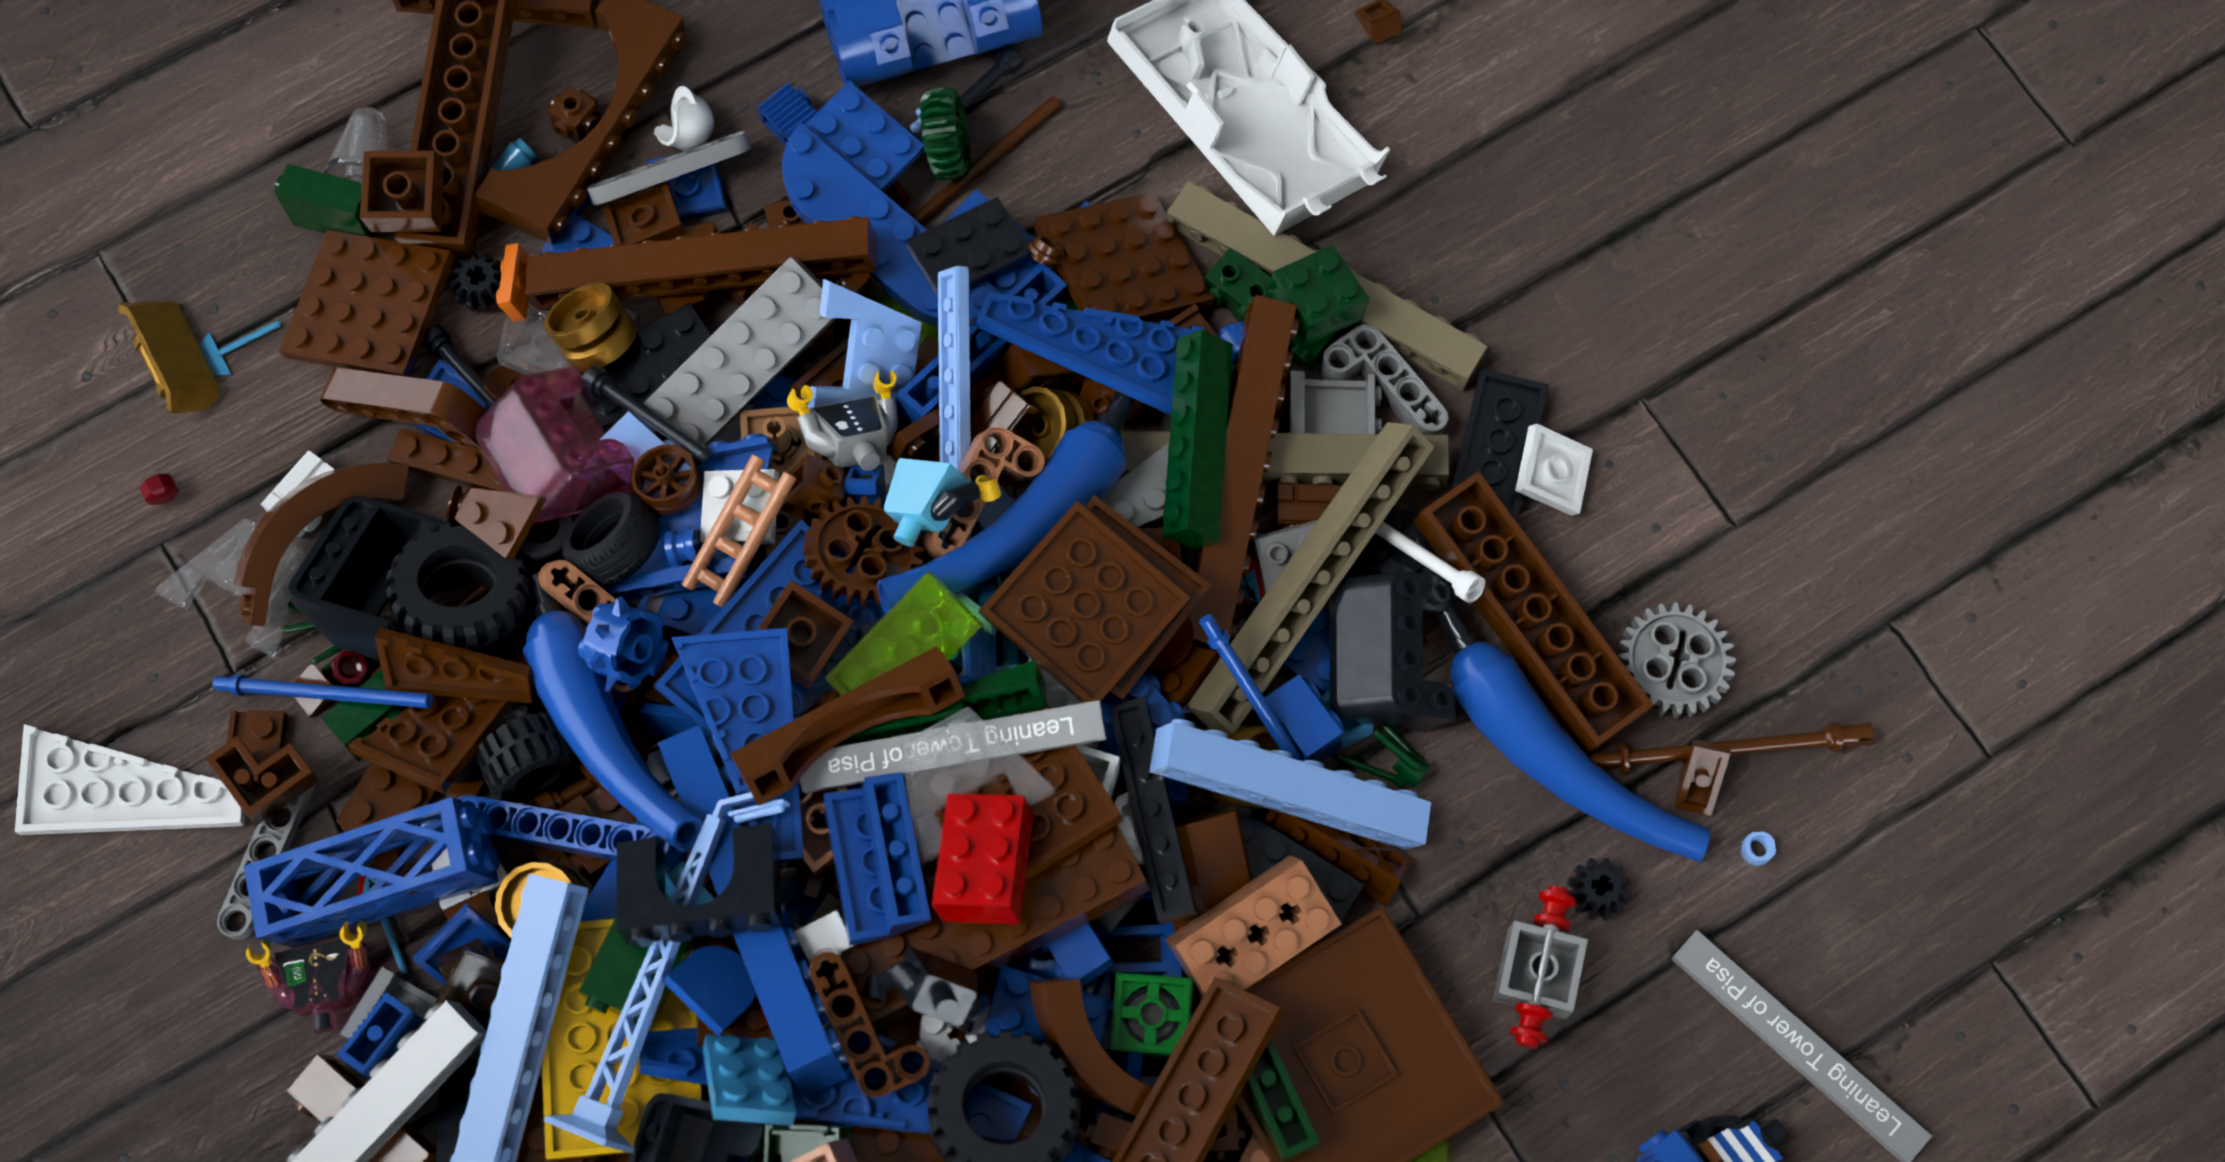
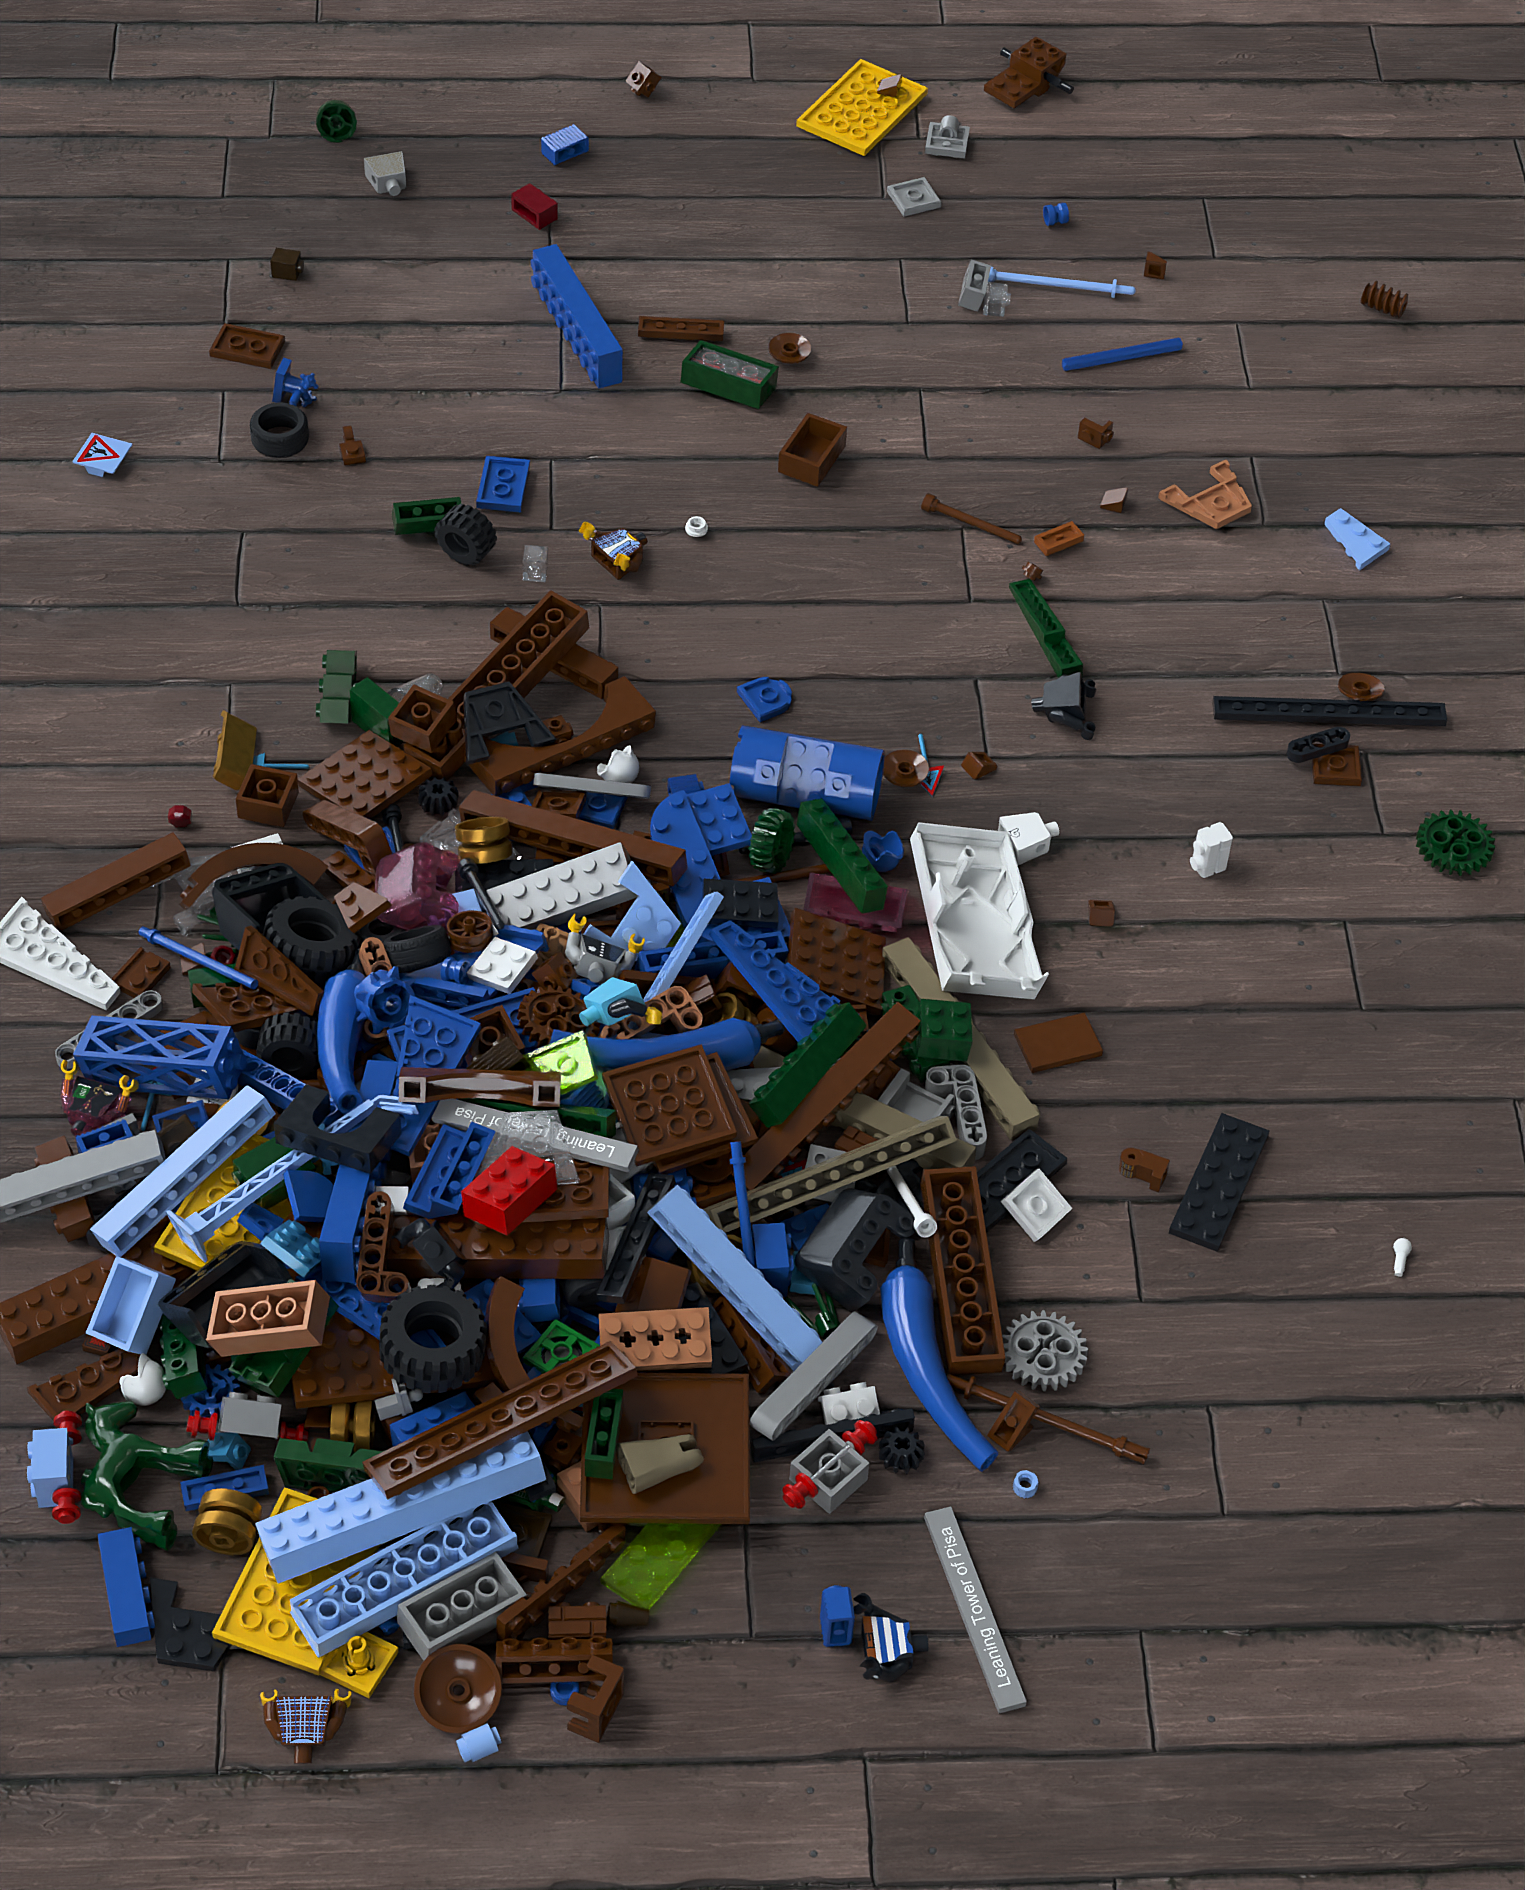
camera: 30 degrees right, 20 degrees down
(137, 636) = (115, 881): none -> reddish brown brick
(246, 188) = (335, 686): none -> dark green brick
(258, 400) = (267, 795): none -> reddish brown brick
(263, 786) = (131, 985): reddish brown brick -> none
(490, 130) = (496, 711): none -> black wing
(511, 293) = (450, 805): orange plate -> none
(734, 508) = (495, 958): nougat bar -> none
(844, 666) = (501, 1056): none -> dark brown brick
(1045, 111) = (842, 856): none -> dark green brick
(1045, 250) = (786, 924): reddish brown plate -> none
(1081, 73) = (884, 851): none -> blue helmet
(1097, 159) = (828, 898): none -> clear pink windscreen
(1356, 1096) = (657, 1460): none -> dark tan piece
(1438, 228) = (1058, 1042): none -> reddish brown tile
(1446, 855) = (813, 1375): none -> light grey beam
(1501, 862) = (848, 1404): none -> white bracket
(1519, 902) = (796, 1441): none -> black plate
(1638, 346) = (1144, 1167): none -> reddish brown leg
(1729, 318) = (1219, 1182): none -> black plate
(1979, 296) = (1402, 1248): none -> white piece

